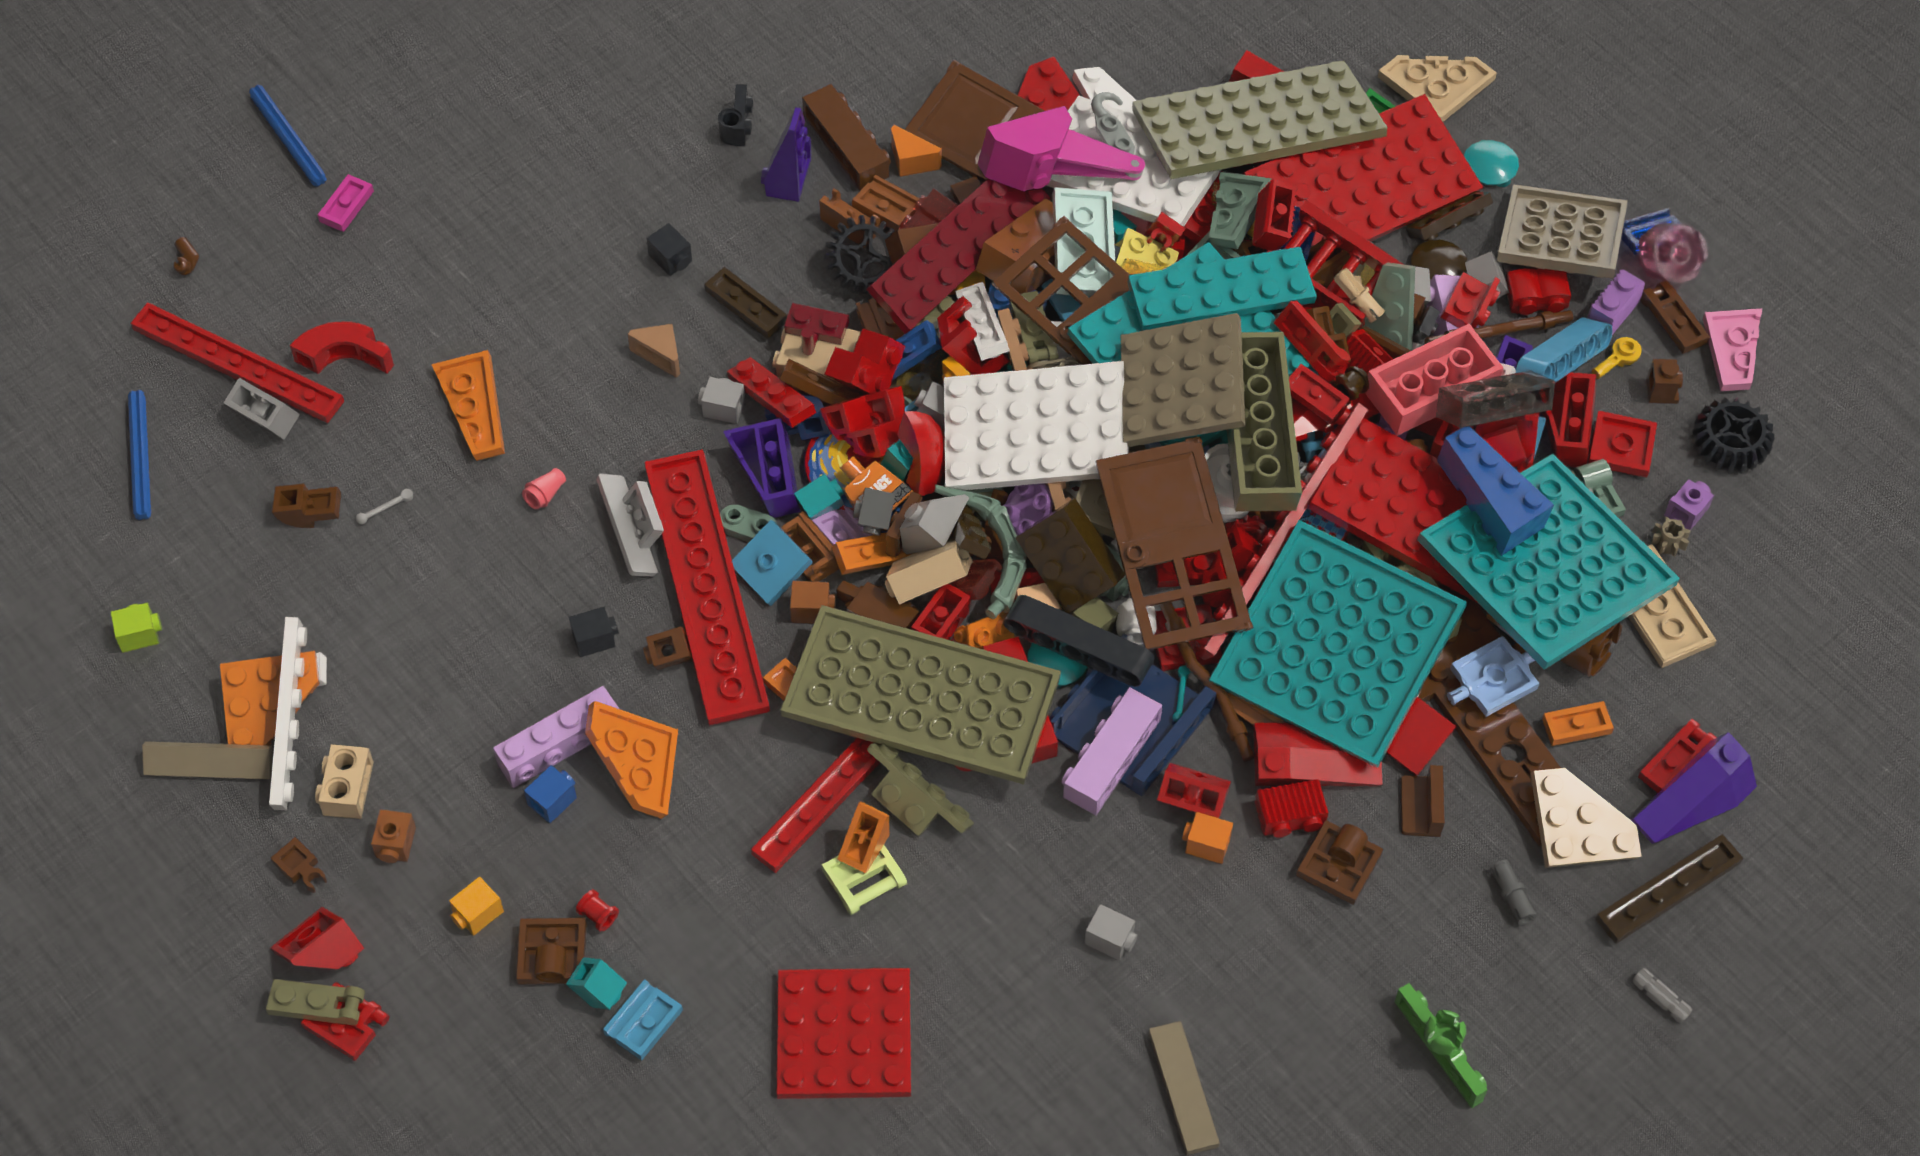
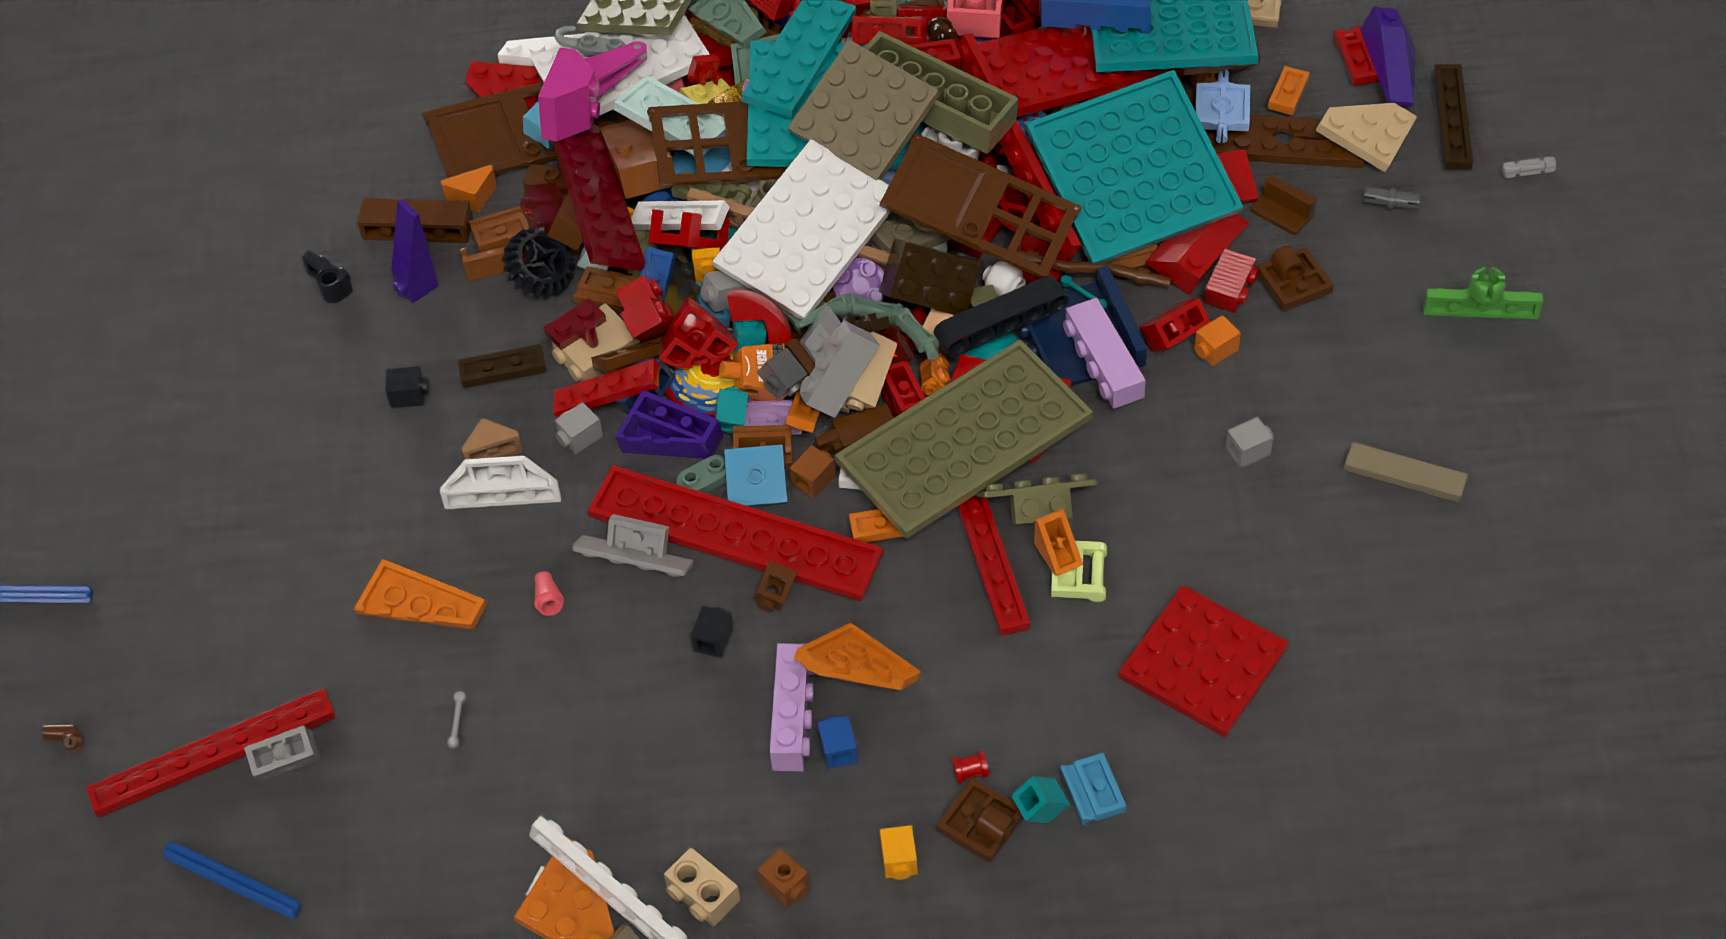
camera: 50 degrees left, 5 degrees down
(302, 507) = (406, 775): reddish brown brick -> none
(339, 341) = (271, 658): red arch -> none
(345, 203) = (133, 586): dark pink plate -> none
(623, 380) = (499, 483): none -> white wedge
(900, 546) = (838, 368): none -> light grey brick

